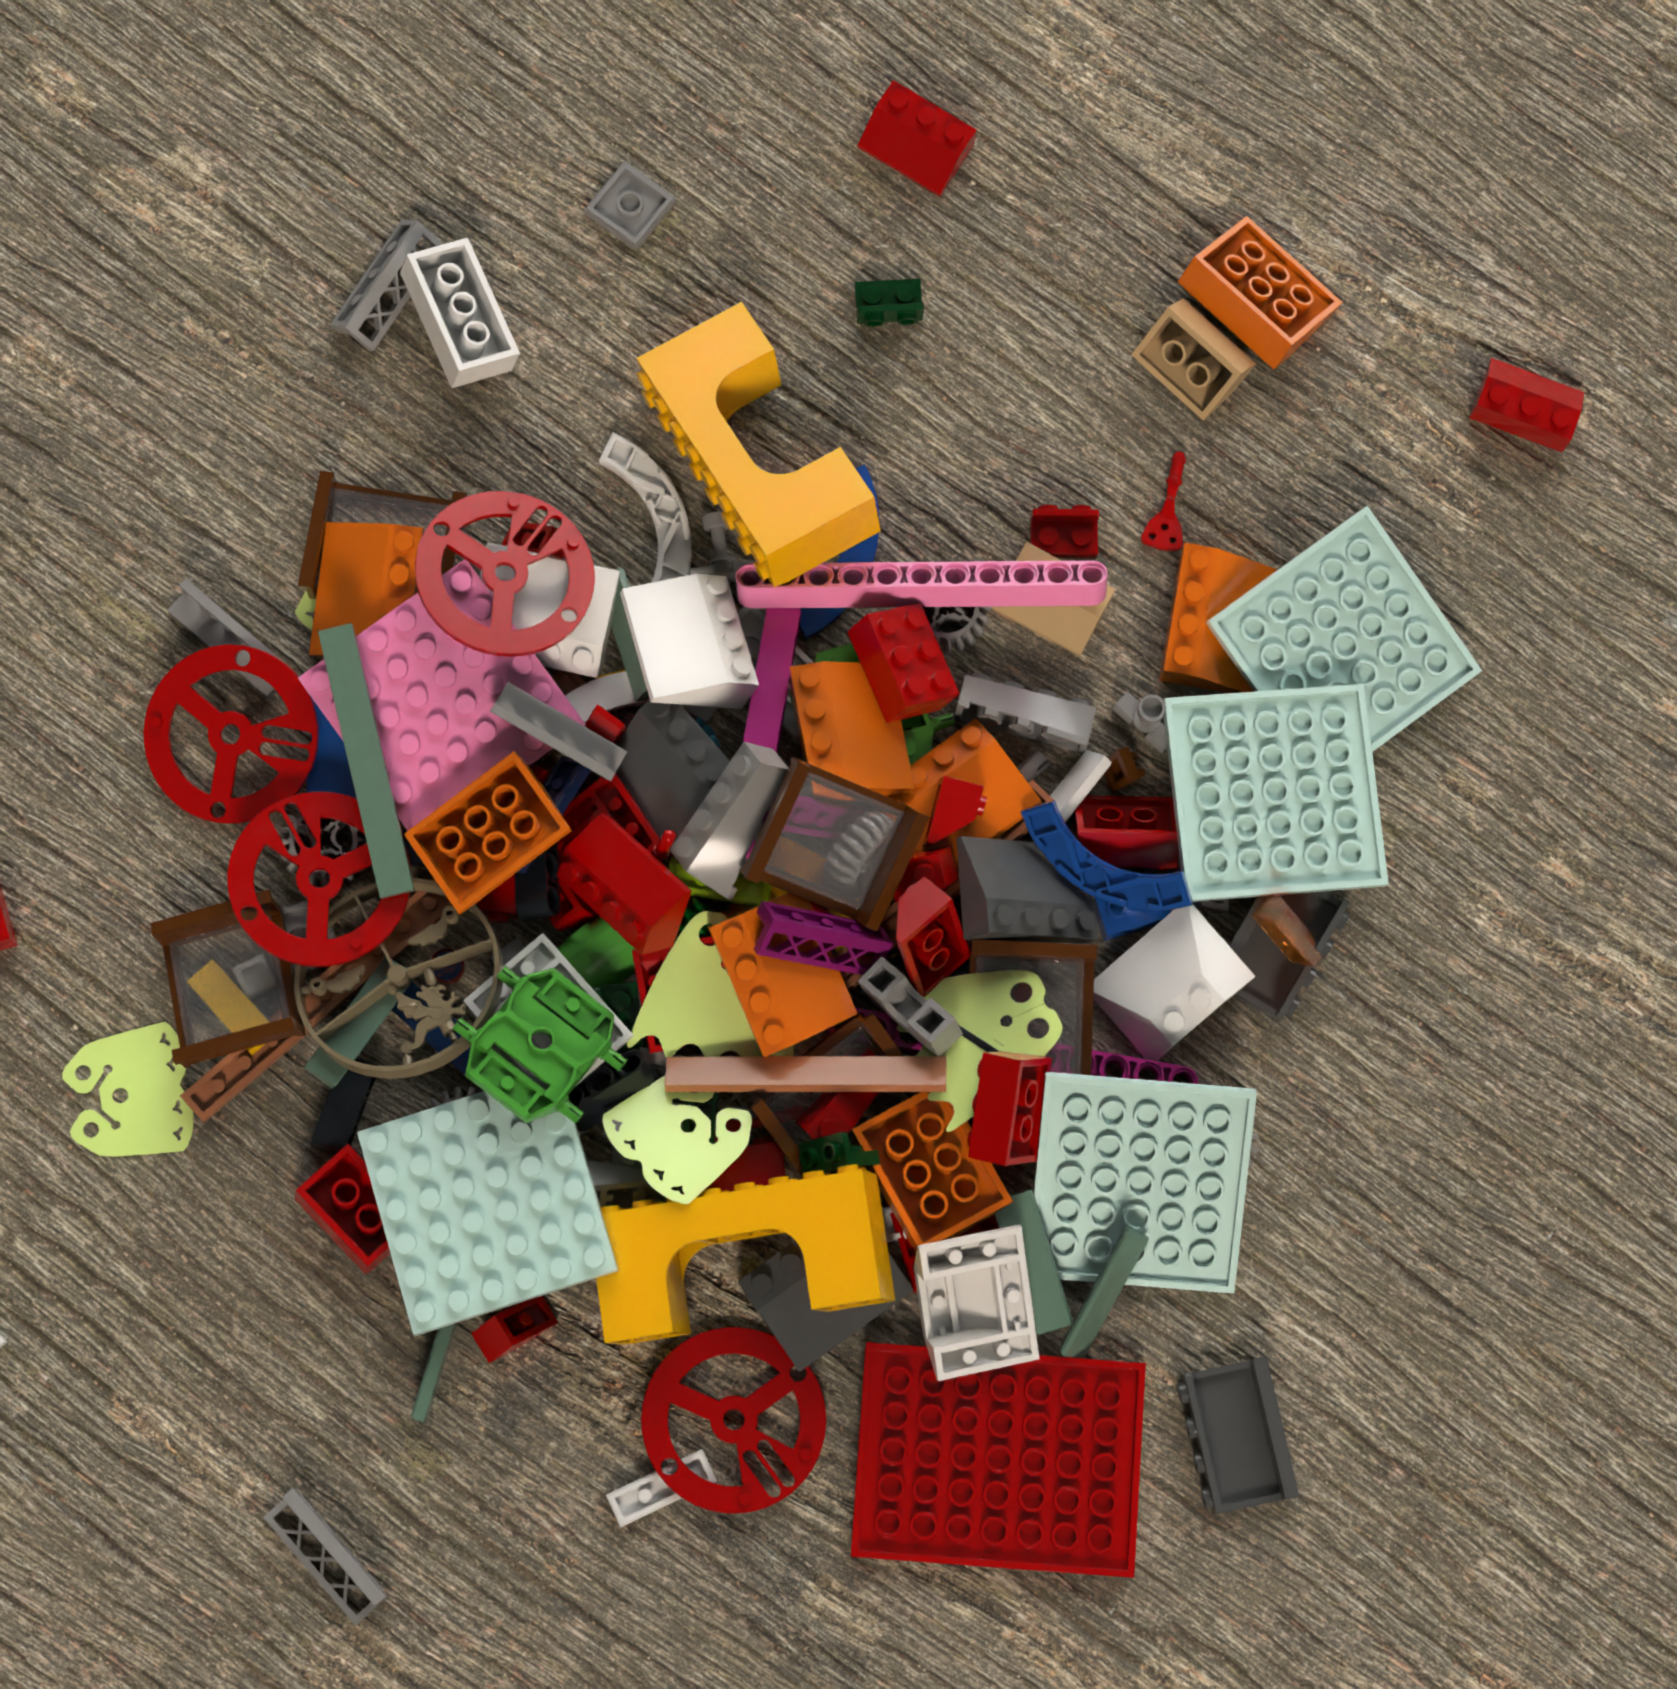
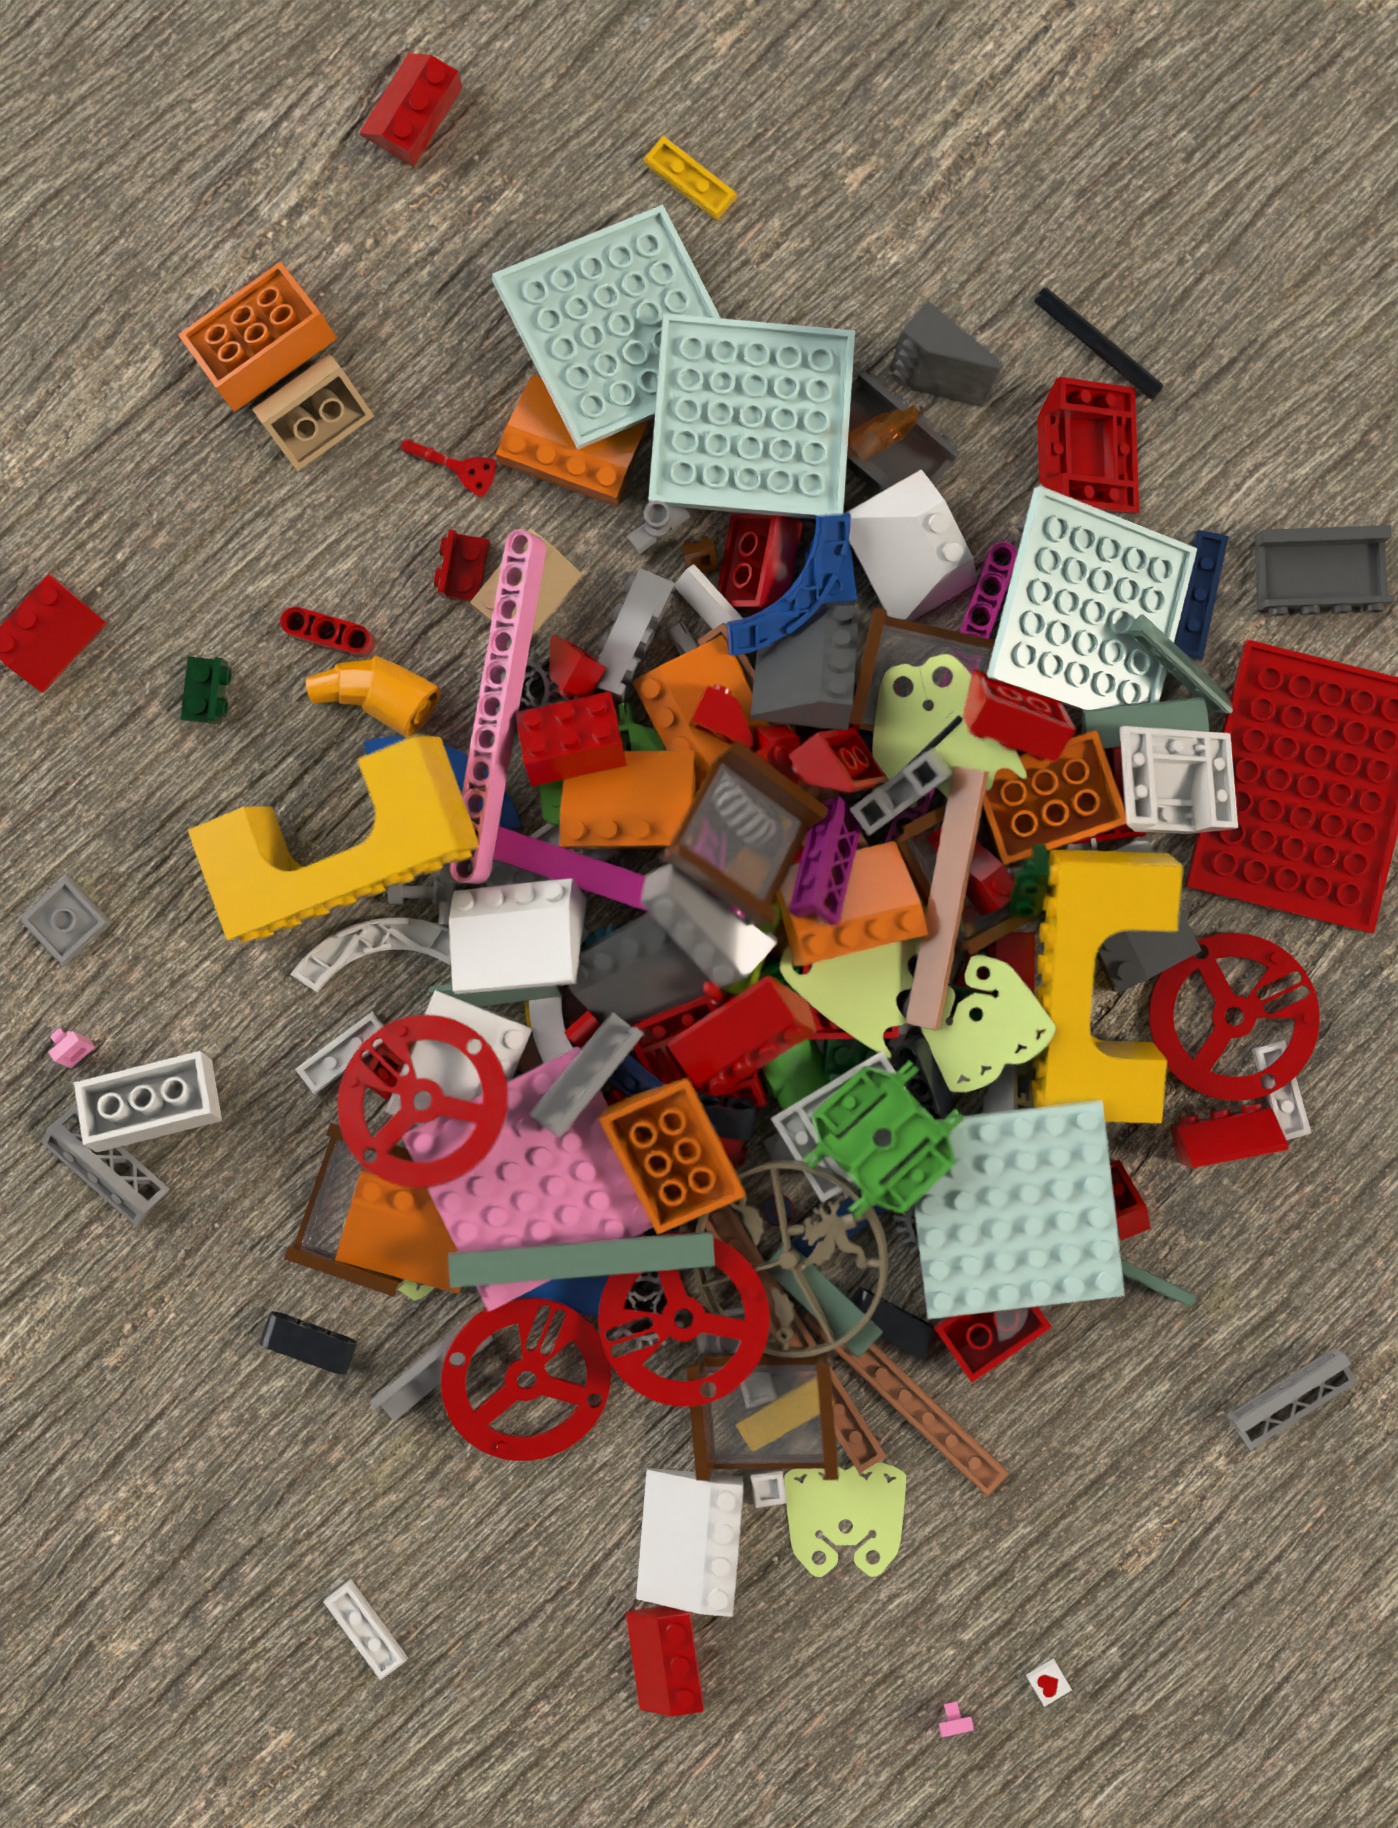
camera: 75 degrees left, 10 degrees up
(84, 933) = (690, 1541): none -> white slope
(150, 1006) = (768, 1488): none -> white tile
(236, 511) = (308, 1342): none -> black beam
(252, 1157) = (922, 1413): none -> nougat tile
(366, 1220) = (1010, 1321): none -> clear tile
(501, 230) = (69, 1047): none -> bright pink tile
(520, 477) = (333, 1059): none -> white tile
(603, 1428) = (1227, 1136): none -> red slope
(921, 473) = (381, 689): none -> light orange piece
(972, 395) = (314, 624): none -> red beam
(978, 656) = (573, 668): none -> red slope
(1185, 1307) = (1201, 594): none -> dark blue tile
(1320, 1159) = (1090, 444): none -> red slope
(1372, 969) = (943, 359): none -> dark grey slope
(1434, 1151) = (1098, 343): none -> black axle
(1517, 696) = (690, 178): none -> yellow tile

